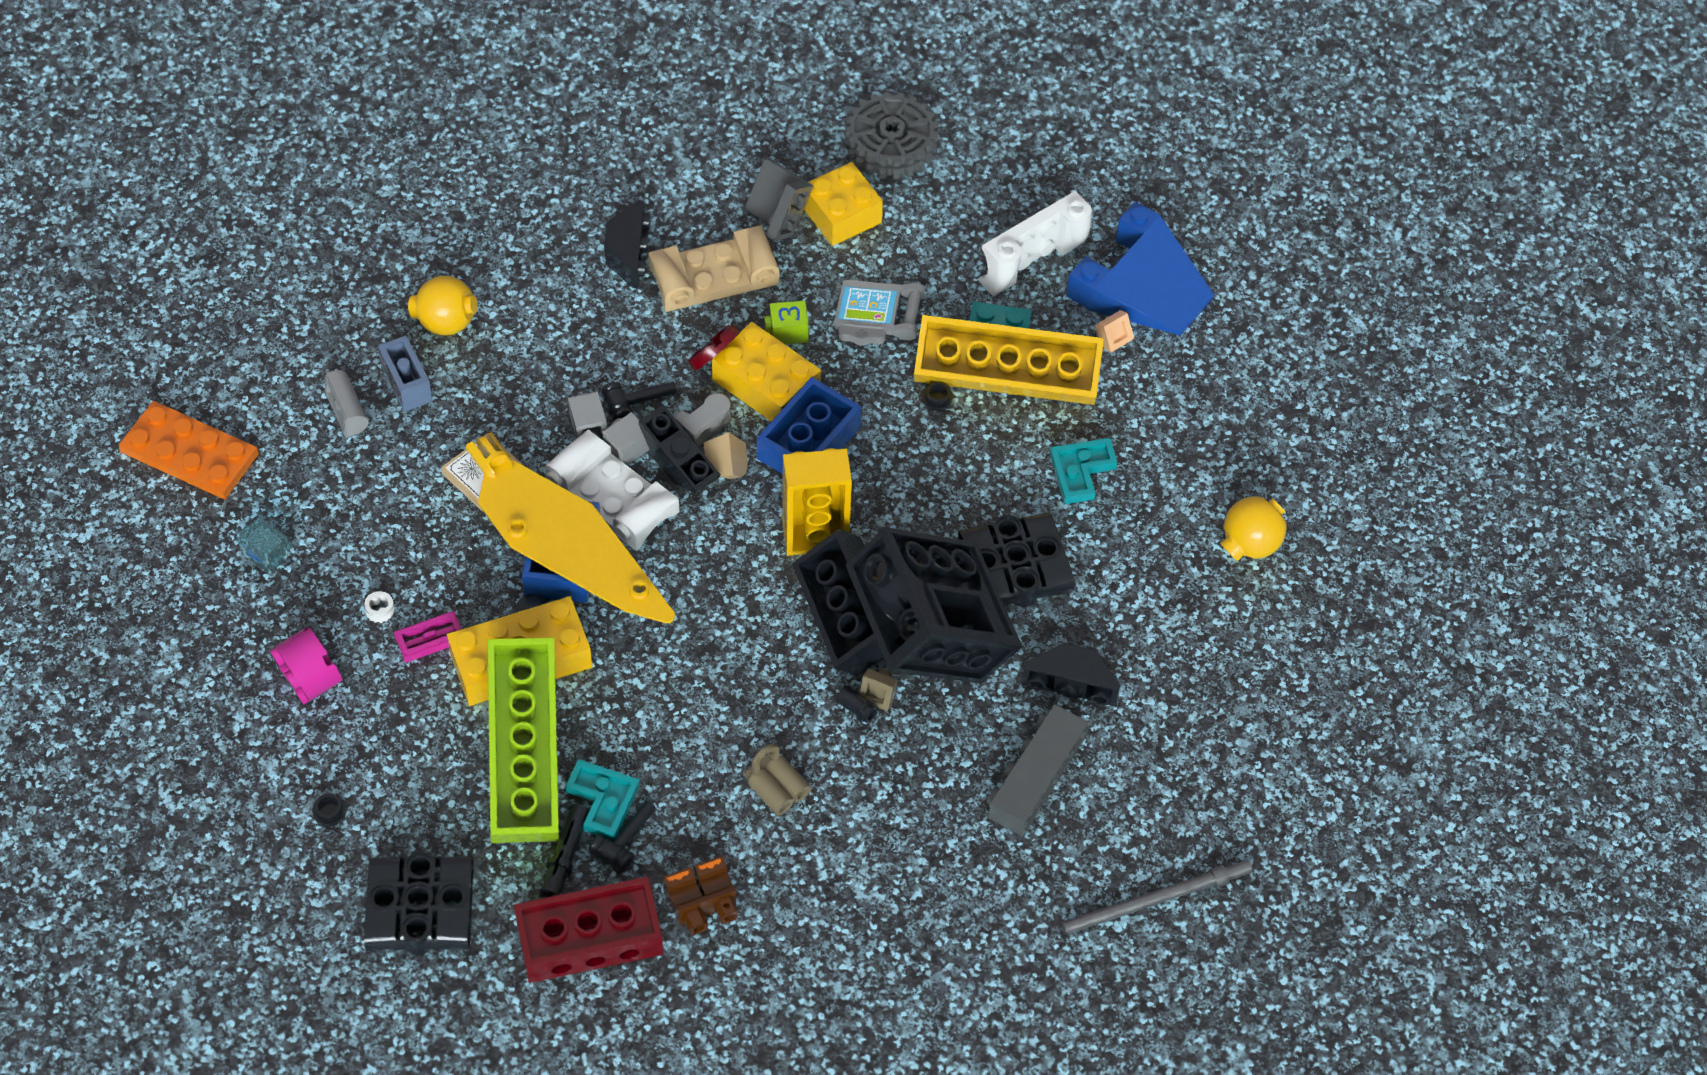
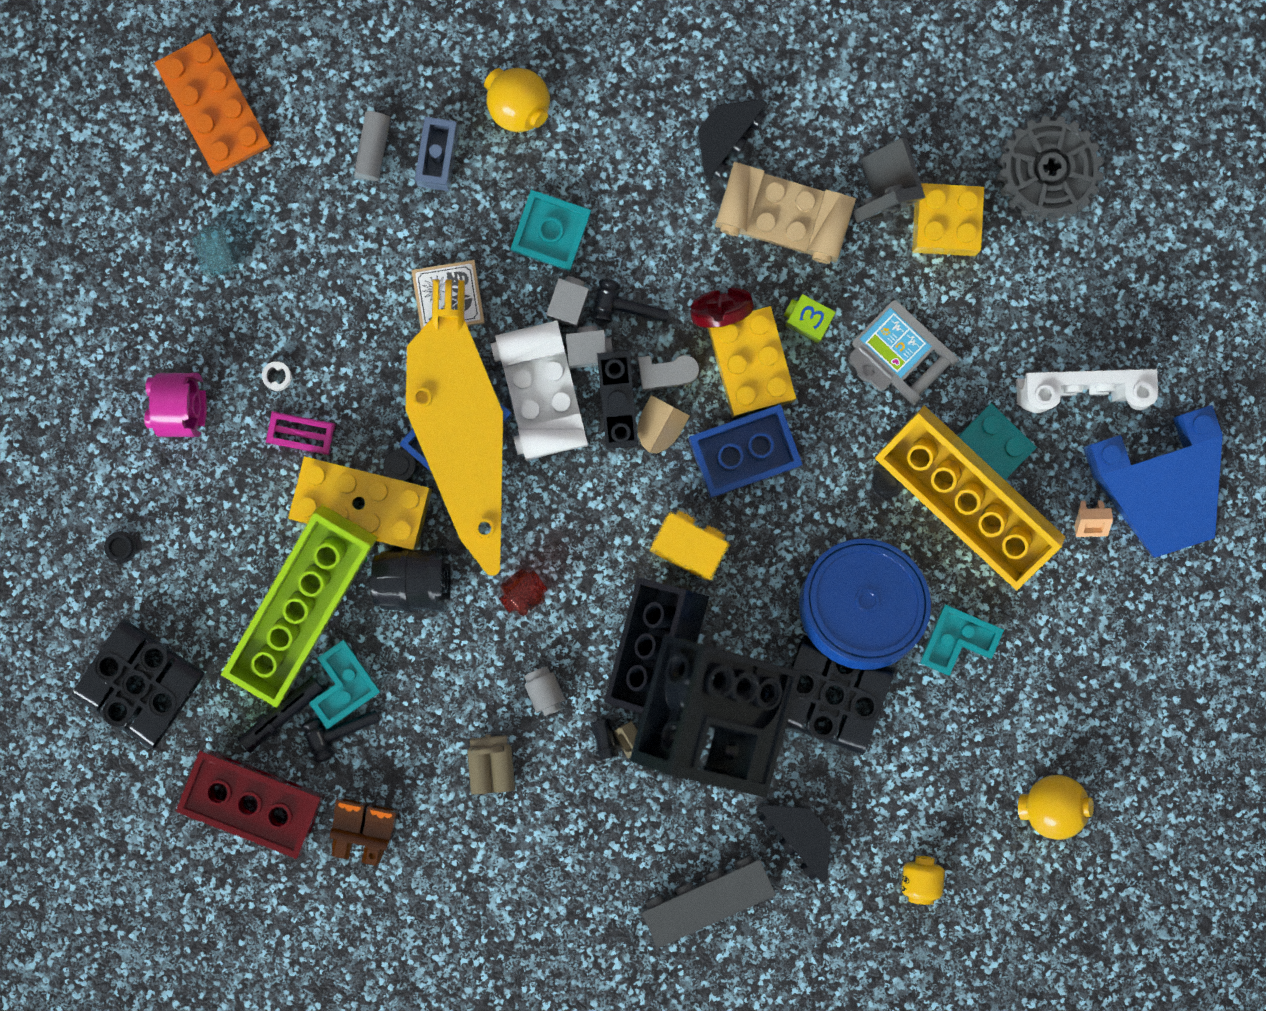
camera: 30 degrees right, 30 degrees up
(536, 379) = (550, 230): none -> teal plate
(605, 675) = (411, 580): none -> black piece
(705, 637) = (522, 592): none -> clear red head
(779, 698) = (544, 691): none -> light grey brick
(987, 477) = (864, 604): none -> blue brick
(1197, 647) = (923, 880): none -> yellow head

